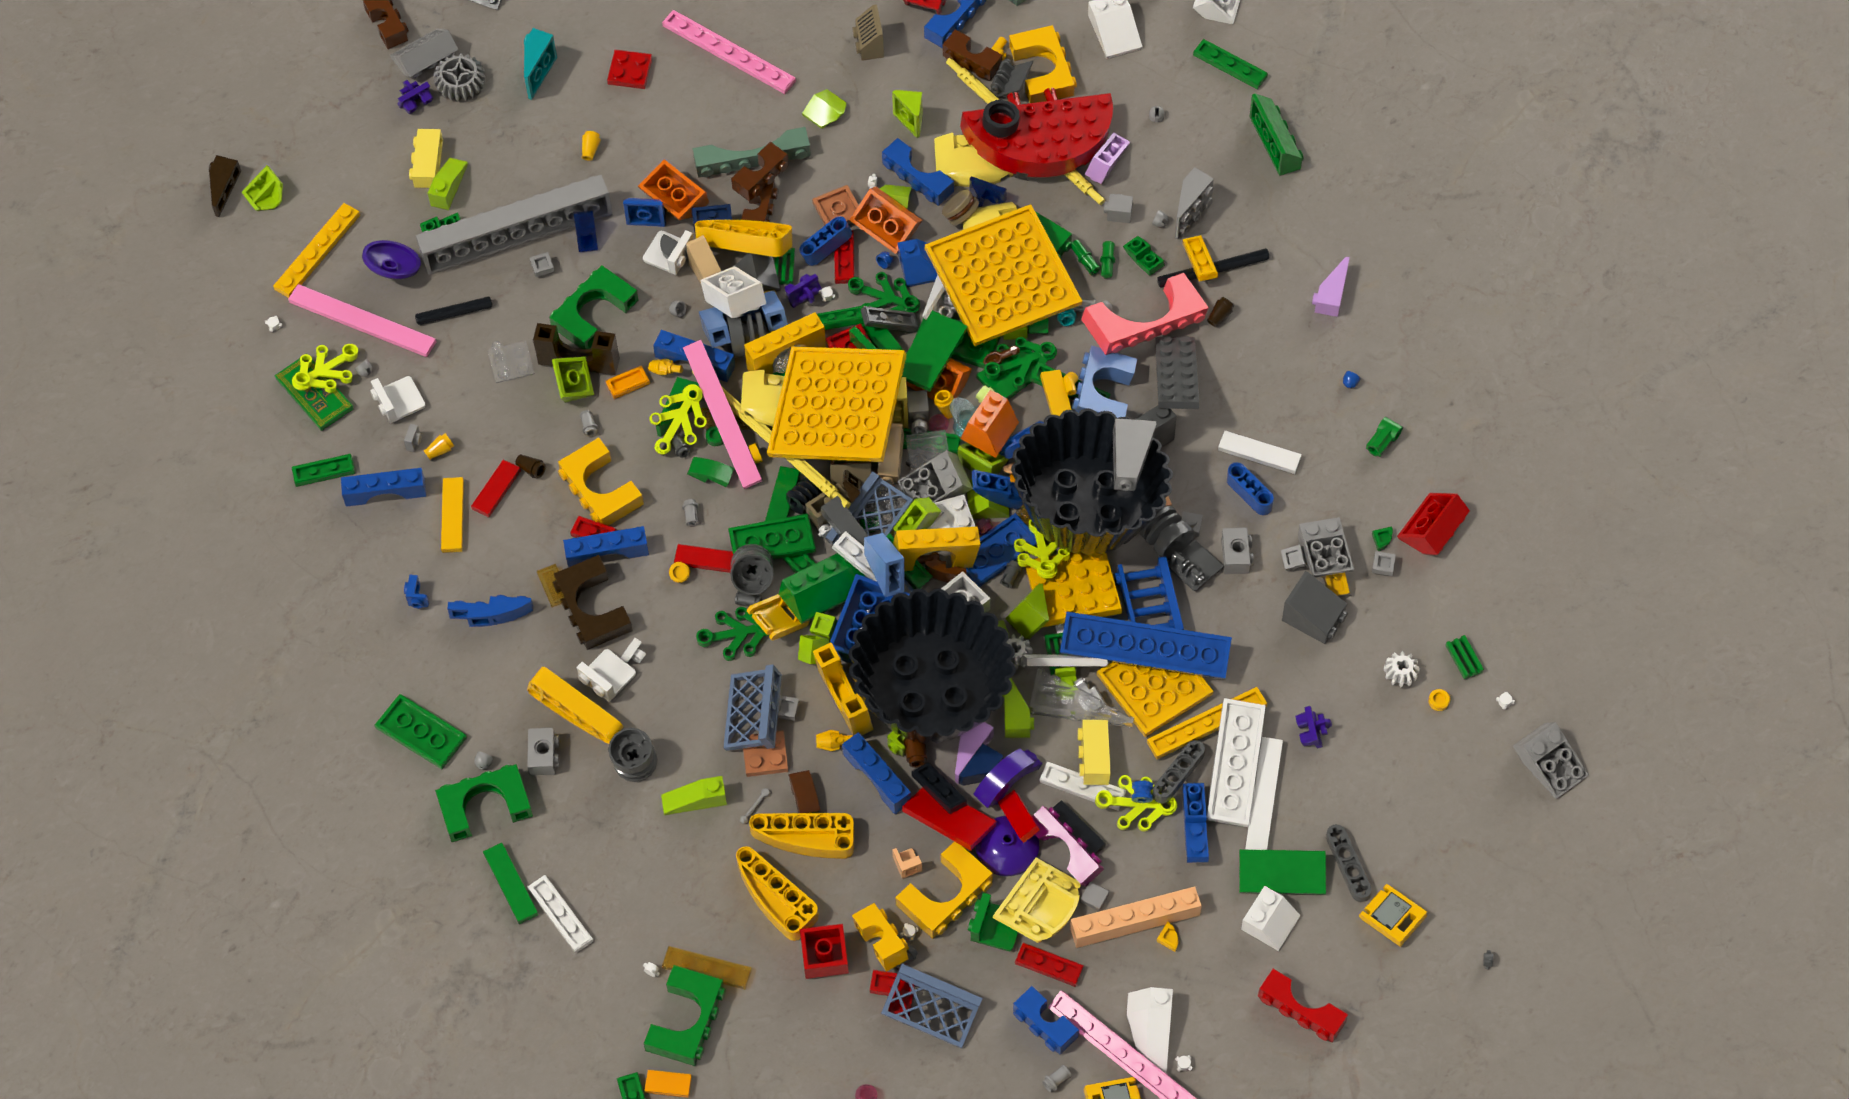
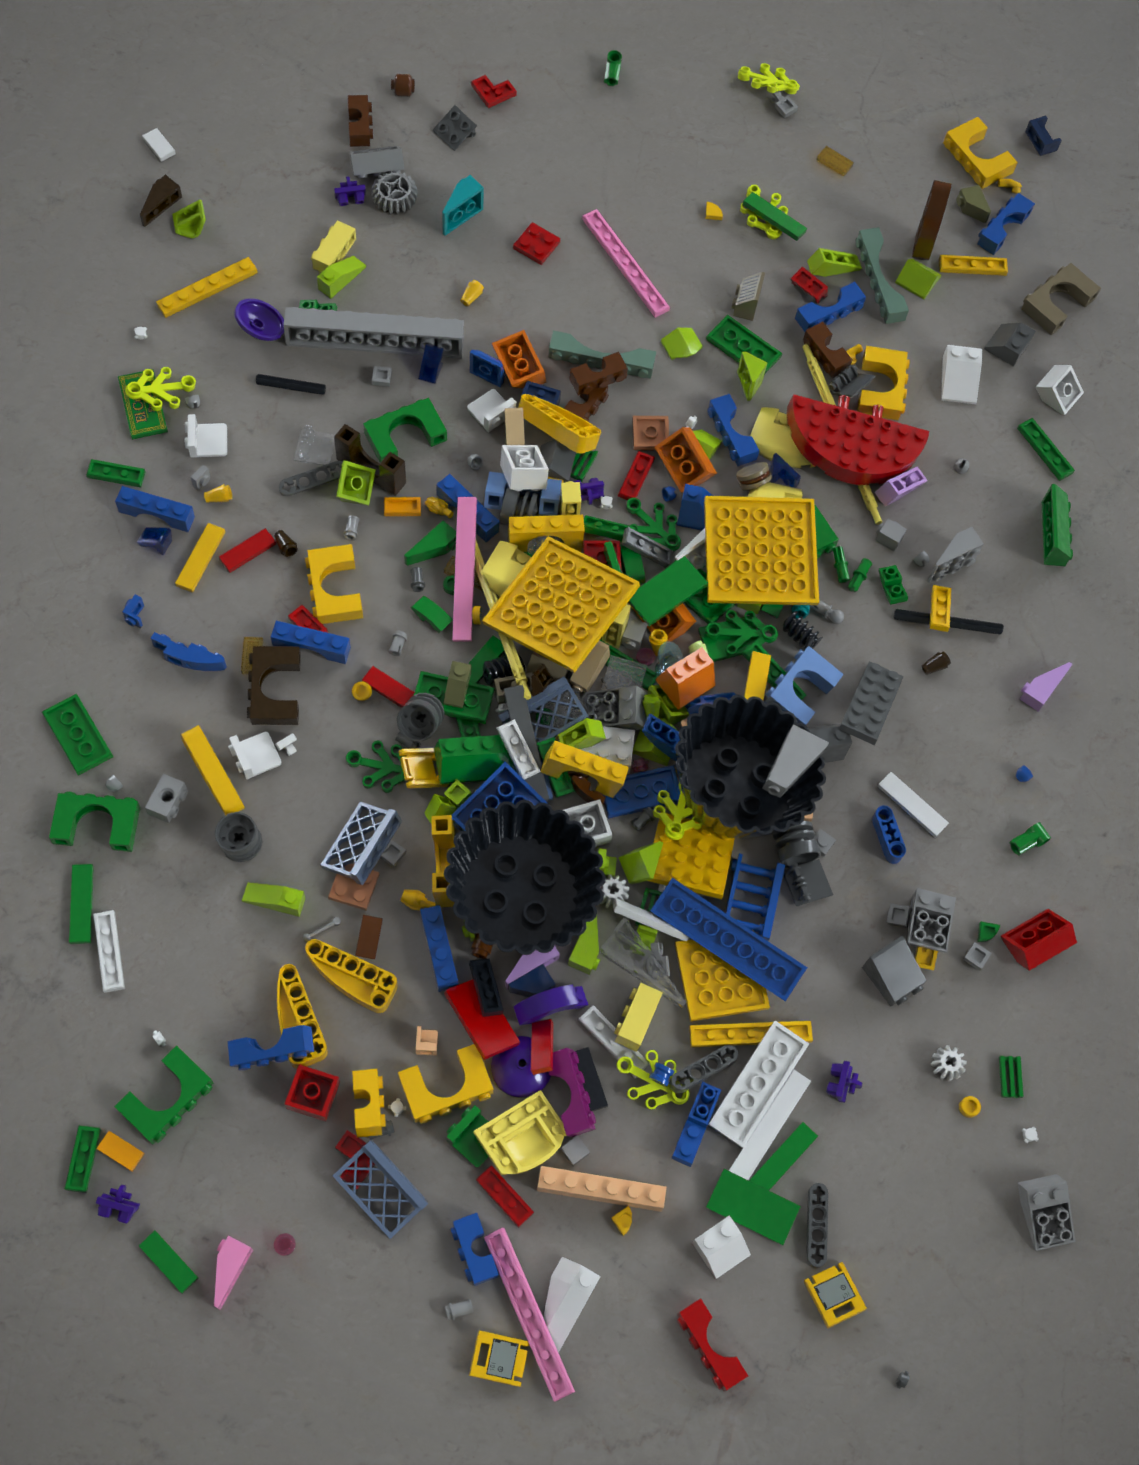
camera: 15 degrees right, 5 degrees up
(189, 128) = (158, 144): none -> white tile
(362, 320) = (213, 361): bright pink tile -> none
(398, 514) = (156, 537): none -> clear blue slope
(524, 392) = (311, 475): none -> dark grey beam
(667, 245) = (492, 403): dark grey tile -> none
(680, 416) = (428, 555): neon yellow plant -> none
(731, 973) = (207, 1059): clear yellow tile -> none
(772, 524) = (457, 684): none -> olive slope
(786, 910) = (294, 1042): none -> blue arch
(794, 302) = (570, 498): none -> light yellow brick
(825, 241) = (626, 456): blue beam -> none
(878, 83) = (735, 338): none -> green tile
(885, 563) = (533, 764): medium blue slope -> none
(922, 427) = (626, 652): light grey hinge -> none
(968, 463) = (651, 704): none -> lime cone
(997, 129) = (827, 403): black tyre -> none
(998, 357) = (723, 620): reddish brown piece -> none
(1069, 382) = (774, 668): yellow arm -> none
(1075, 336) = (800, 631): none -> black piece
(1117, 333) = (834, 644): coral arch -> none
(1183, 1063) = (579, 1348): white piece -> none
(1234, 561) = (843, 894): light grey brick -> none
(1291, 816) = (784, 1157): none -> green tile

